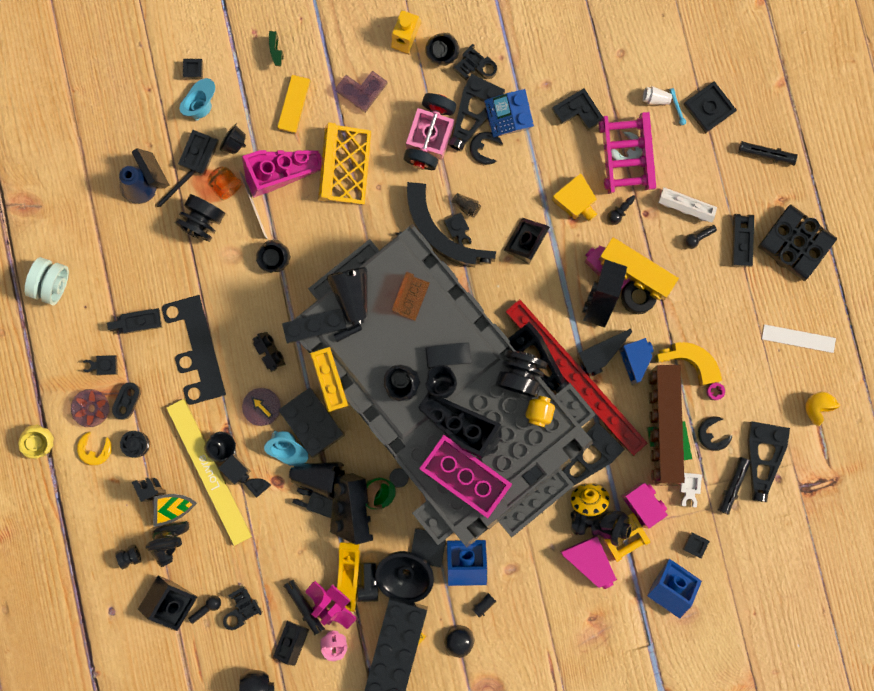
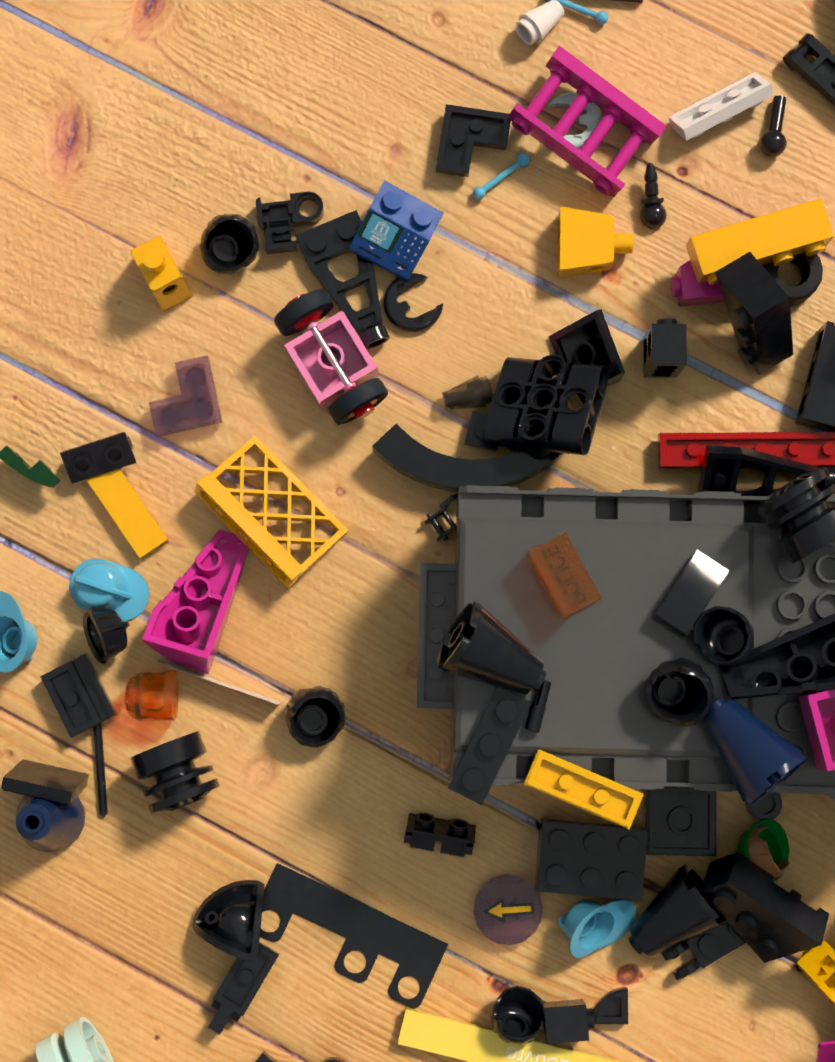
camera: 50 degrees left, 0 degrees up
(160, 294) = (232, 918): none -> black hat
(255, 126) = (107, 586): none -> medium azure piece
(304, 74) = (98, 457): none -> black hinge
(361, 448) = (681, 822): none -> black tile
(402, 433) = (751, 750): none -> dark blue cone
(487, 239) = (531, 388): none -> black connector
(556, 269) = (664, 349): none -> black brick
(589, 141) = (522, 161): none -> medium azure hinge

